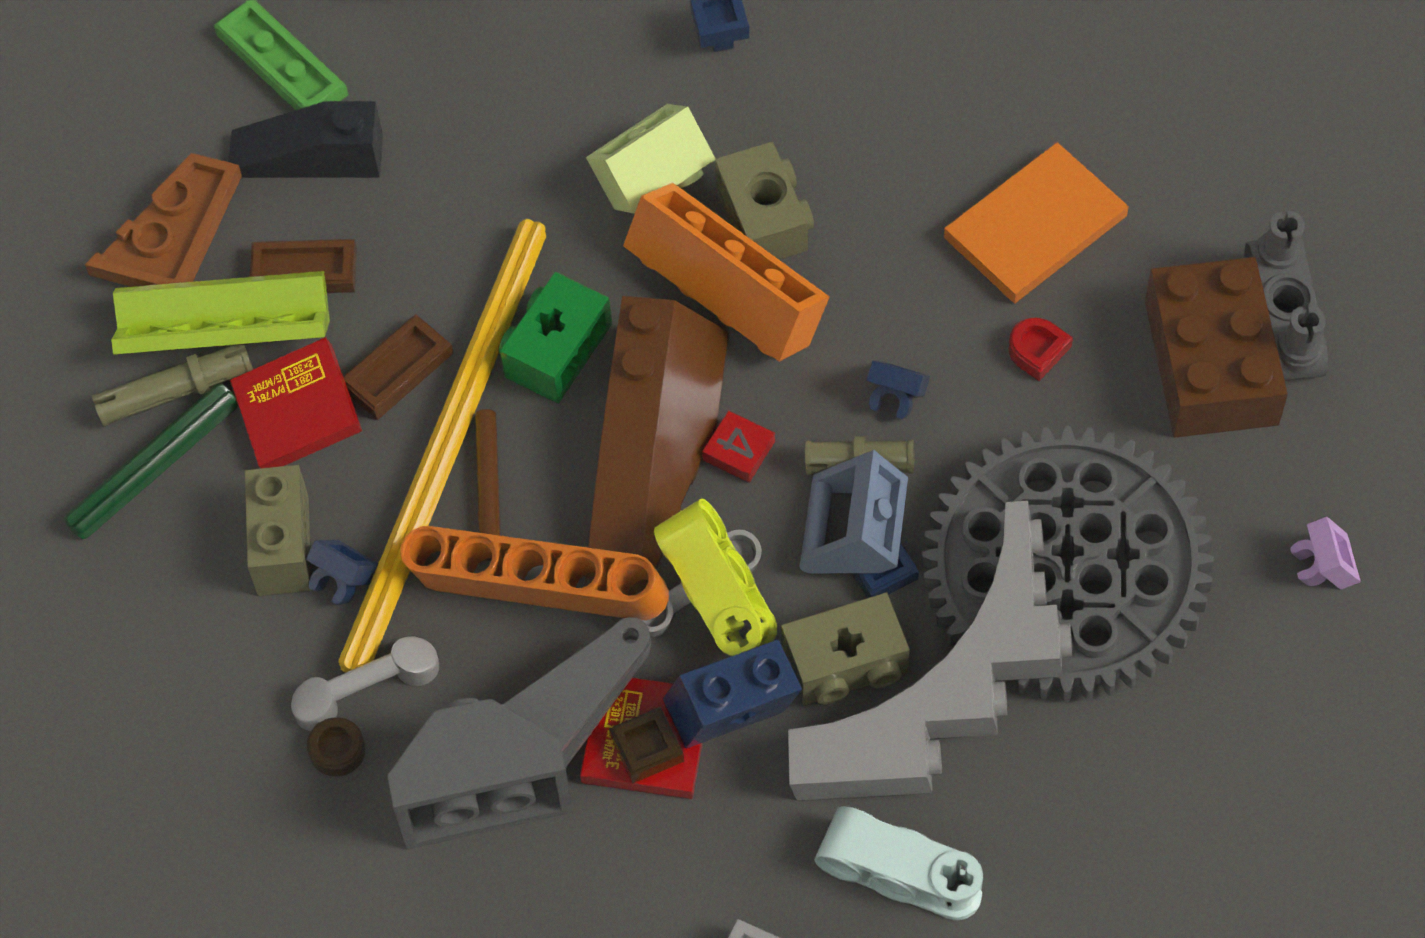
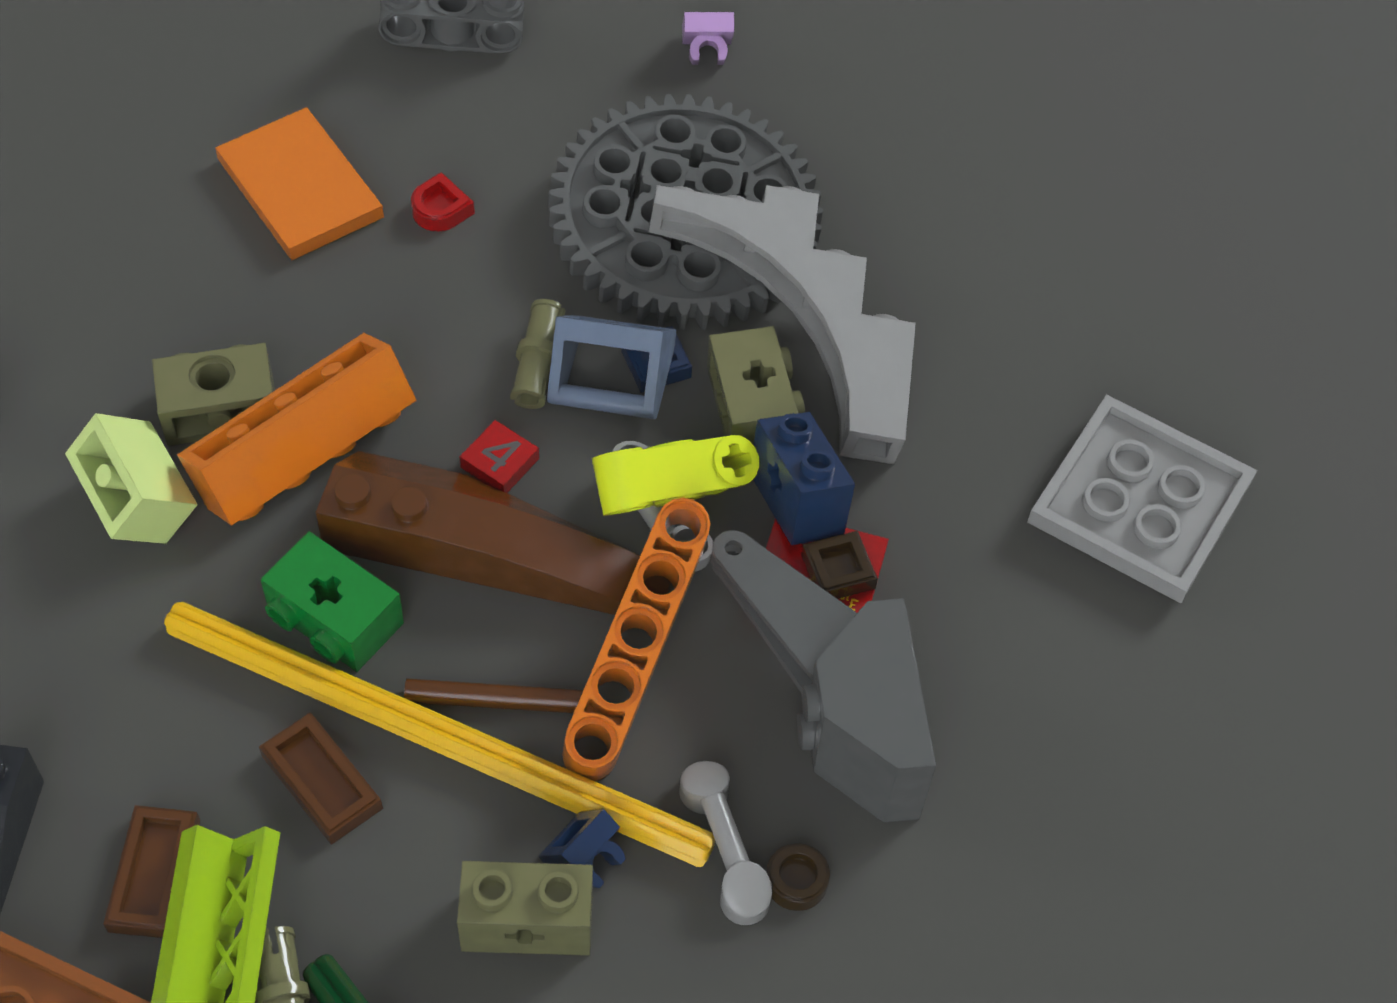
camera: 90 degrees left, 5 degrees down
(296, 405) = (353, 884): red tile -> none
(898, 382) = (461, 308): dark blue tile -> none
(900, 864) = (979, 376): light aqua piece -> none
(1215, 347) = (482, 67): reddish brown brick -> none

